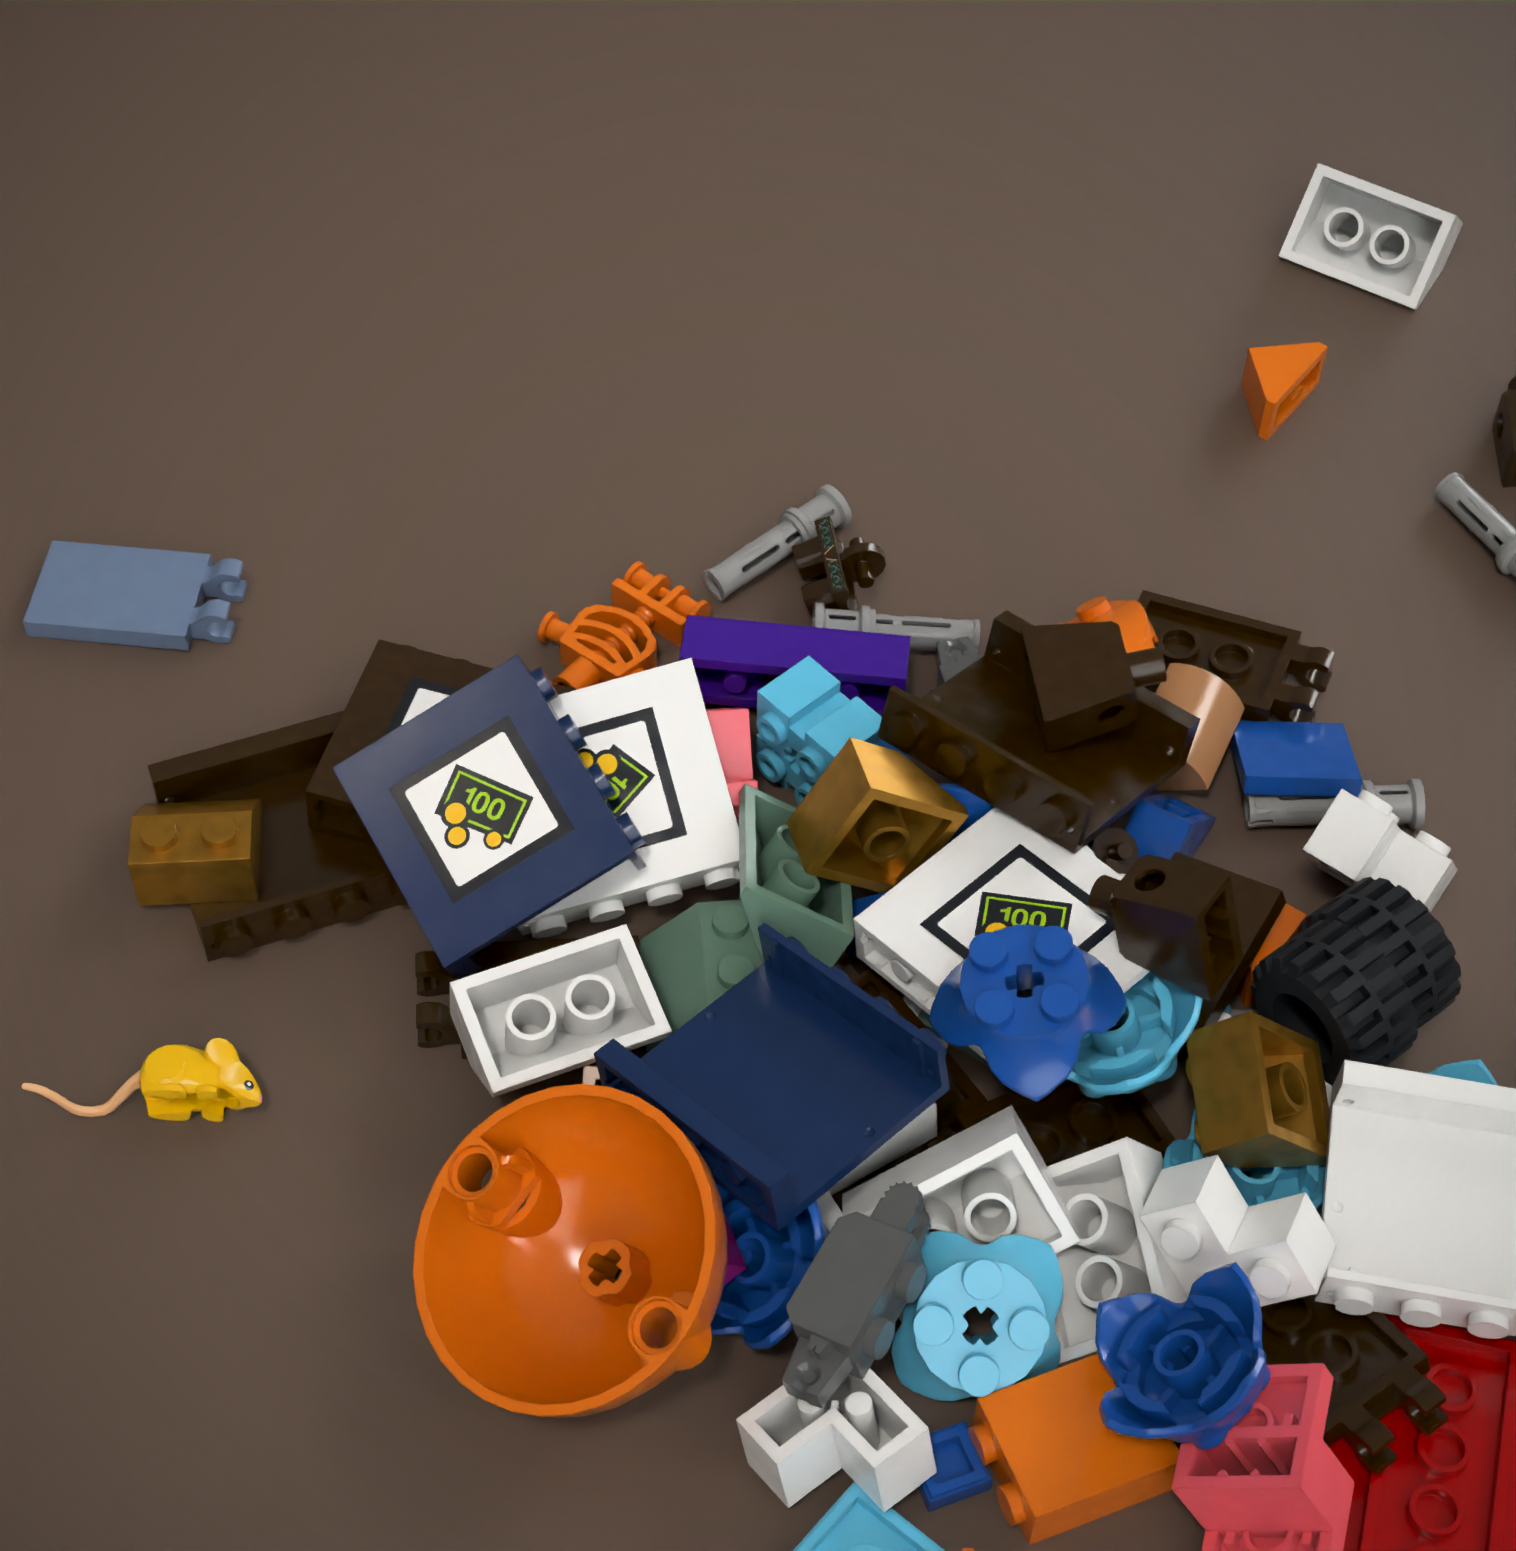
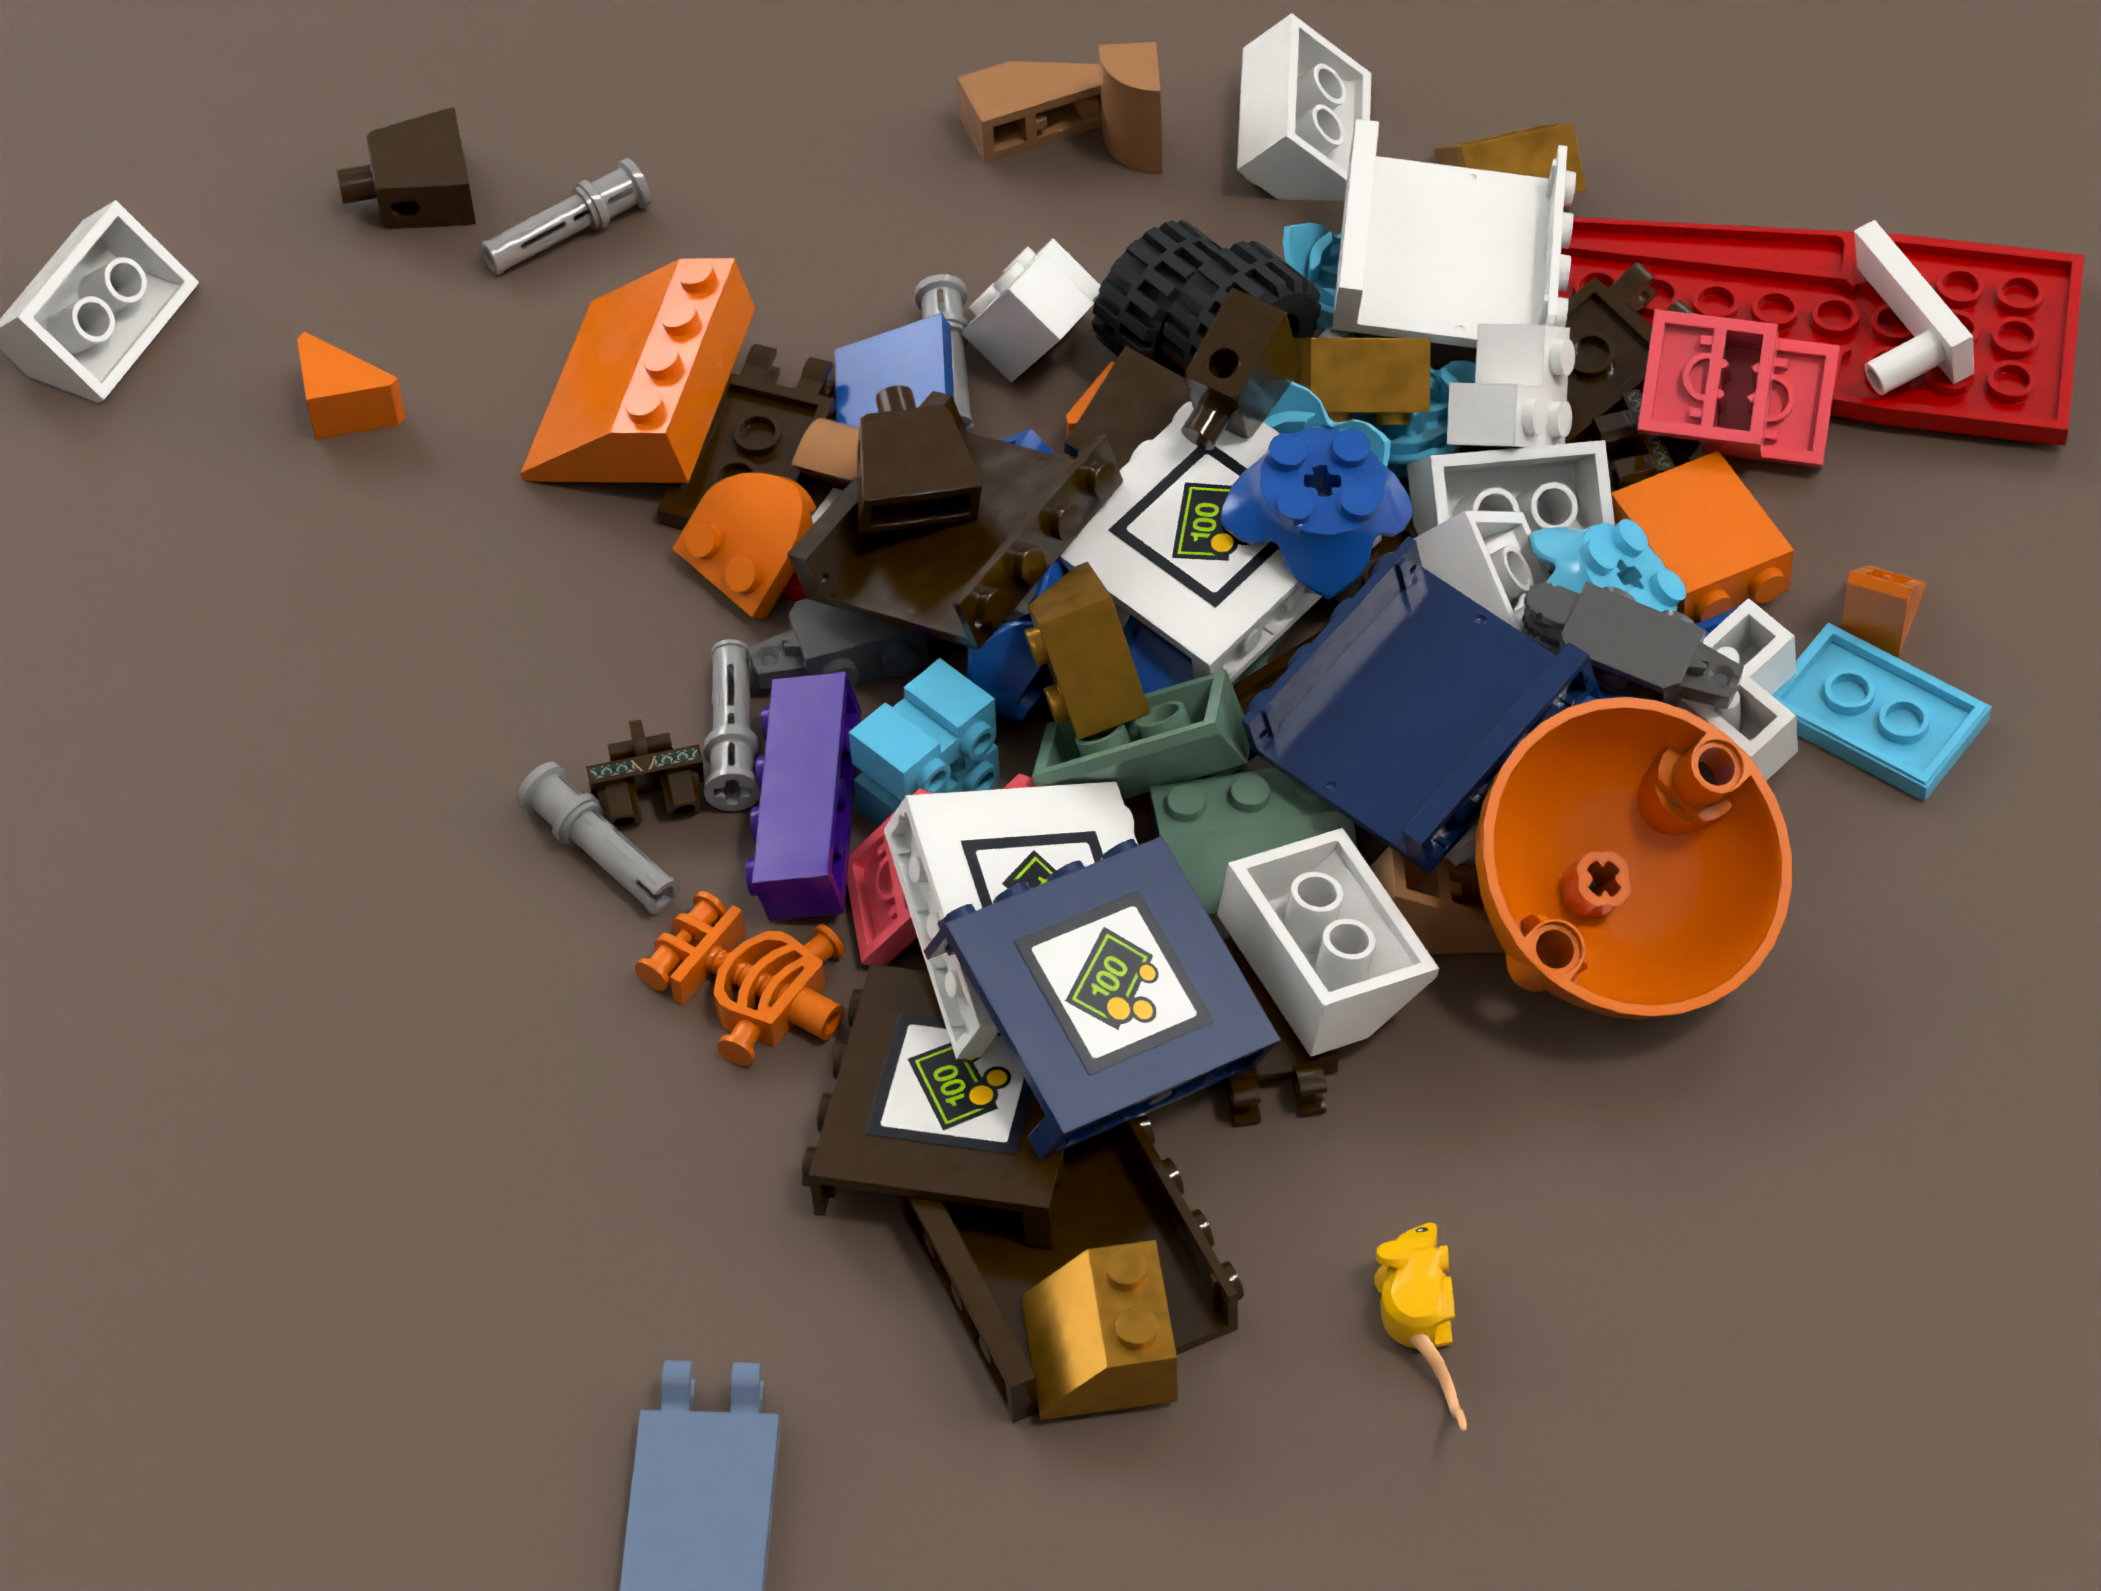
camera: 90 degrees left, 0 degrees up
(1183, 1365) = (1627, 375): blue brick -> none
(1284, 580) = (644, 377): none -> orange slope

